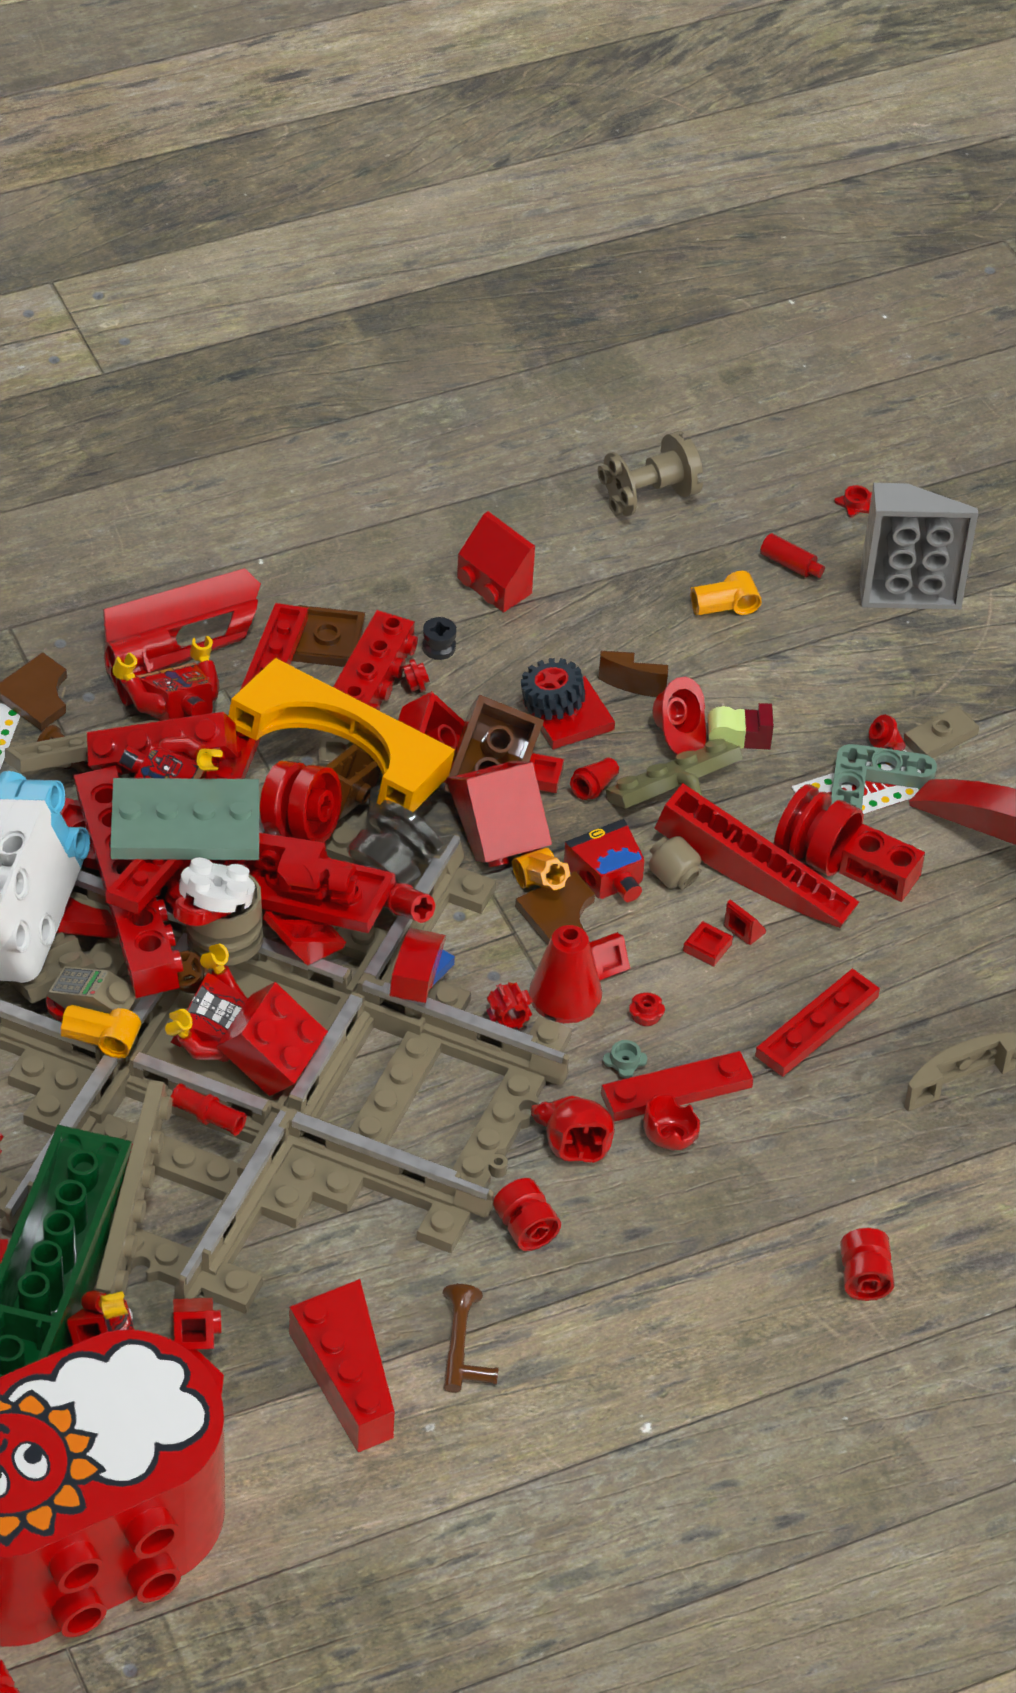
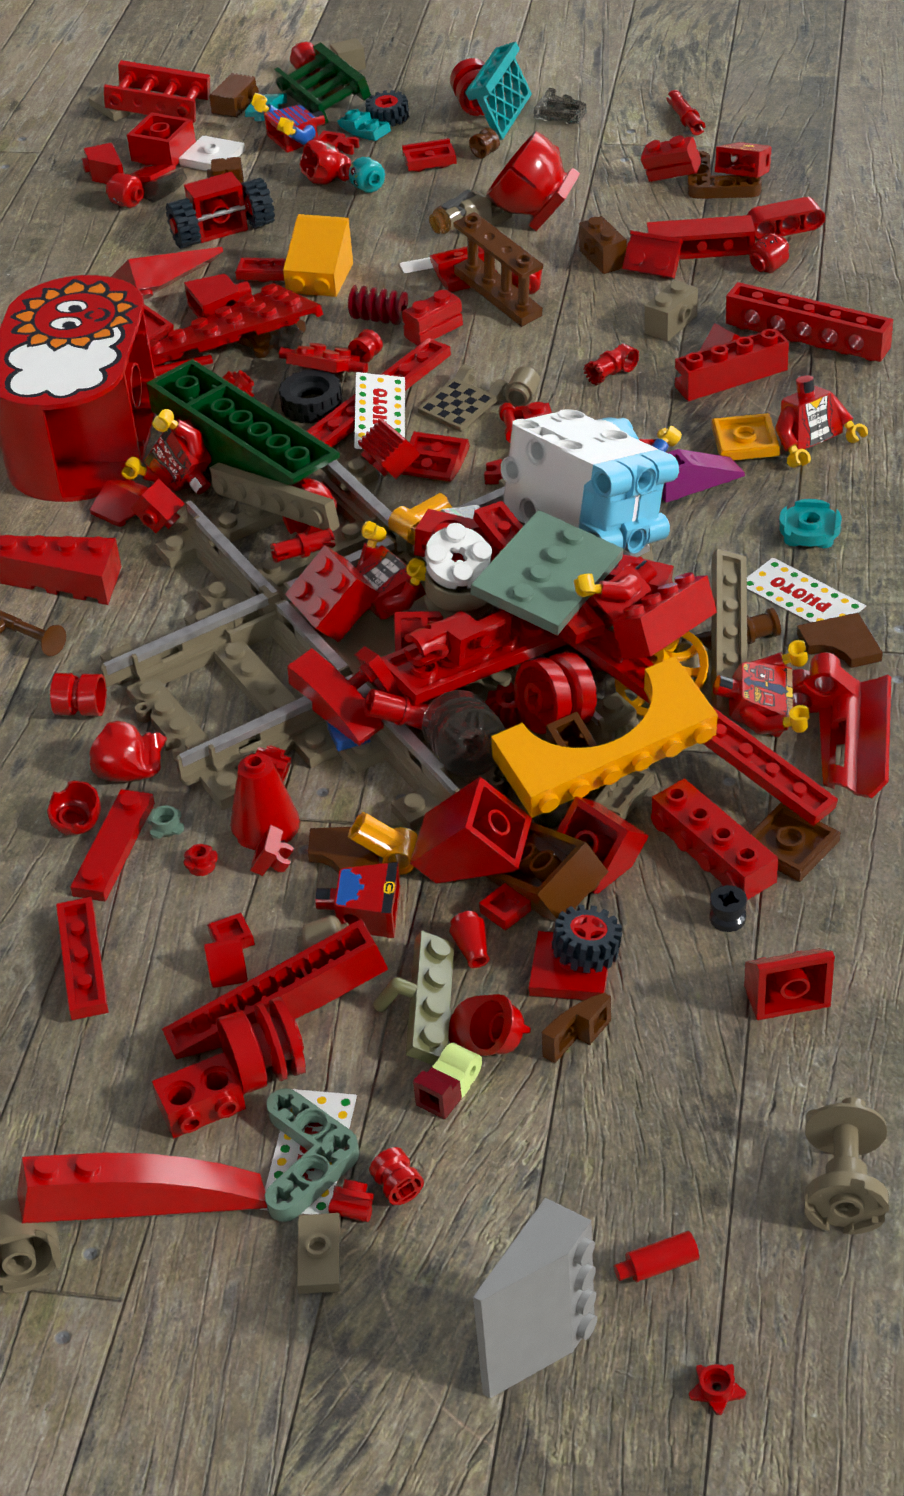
camera: 130 degrees right, 5 degrees down
(379, 928) = (374, 670): none -> red plate
(416, 675) = (690, 862): red plate -> none
(735, 593) = (633, 1167): light orange piece -> none
(850, 713) = (398, 1179): none -> red wheel

